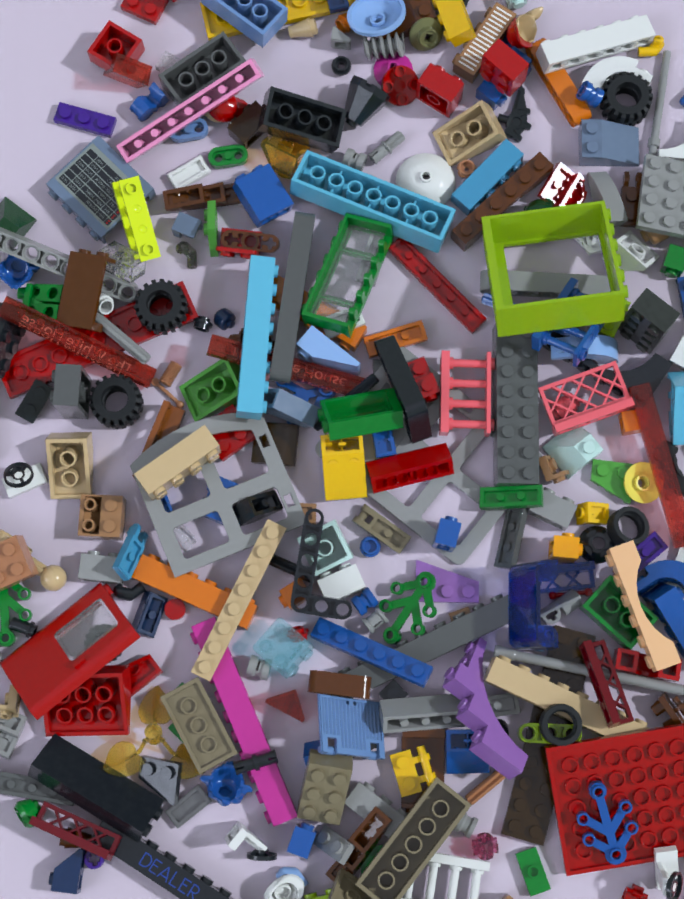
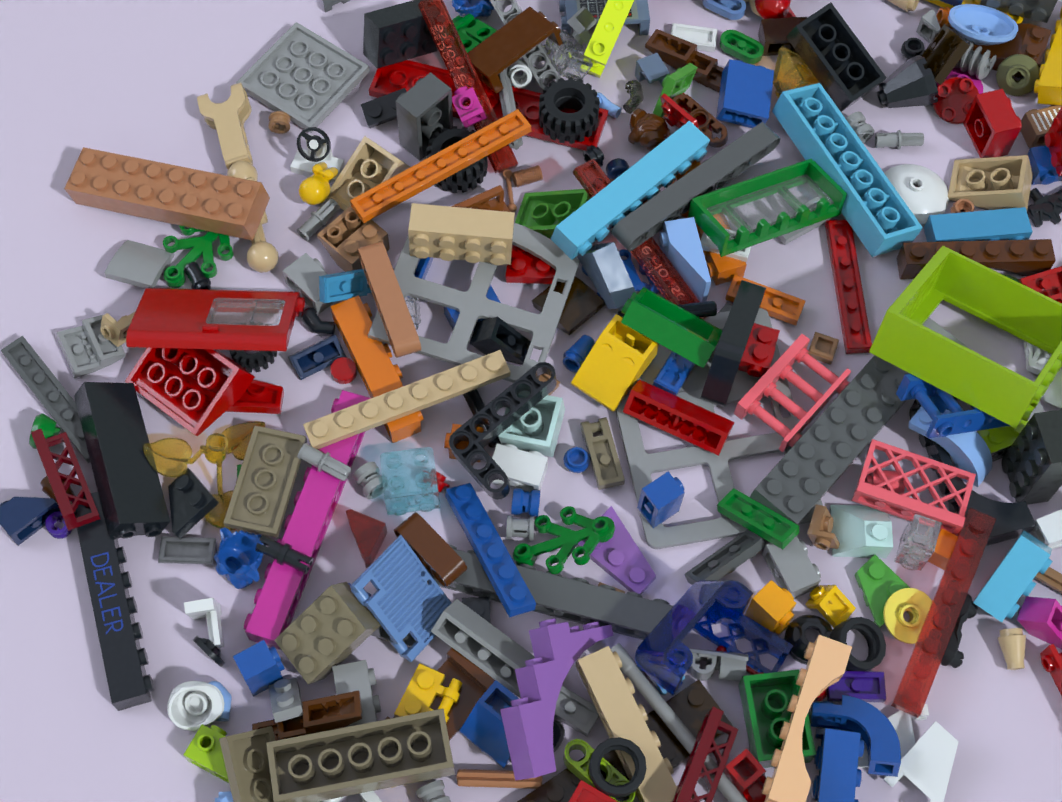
camera: 35 degrees right, 15 degrees down
(42, 499) = (316, 187): none -> yellow piece
(63, 519) = (318, 219): none -> light grey axle
(104, 361) = (470, 114): none -> dark pink brick
(112, 234) = (581, 23): none -> light grey bracket
(117, 421) = (440, 166): none -> orange plate
(169, 544) = (389, 299): none -> nougat beam
(176, 276) = (614, 110): none -> light blue arm
(223, 275) = (647, 129): none -> reddish brown hair
(226, 684) = (324, 462): none -> light grey axle
(311, 474) = (577, 353): none -> blue cone
(368, 59) = (944, 53): none -> dark brown slope
(456, 342) = (823, 347): none -> medium nougat tile
(614, 433) = (918, 542): none -> clear brick

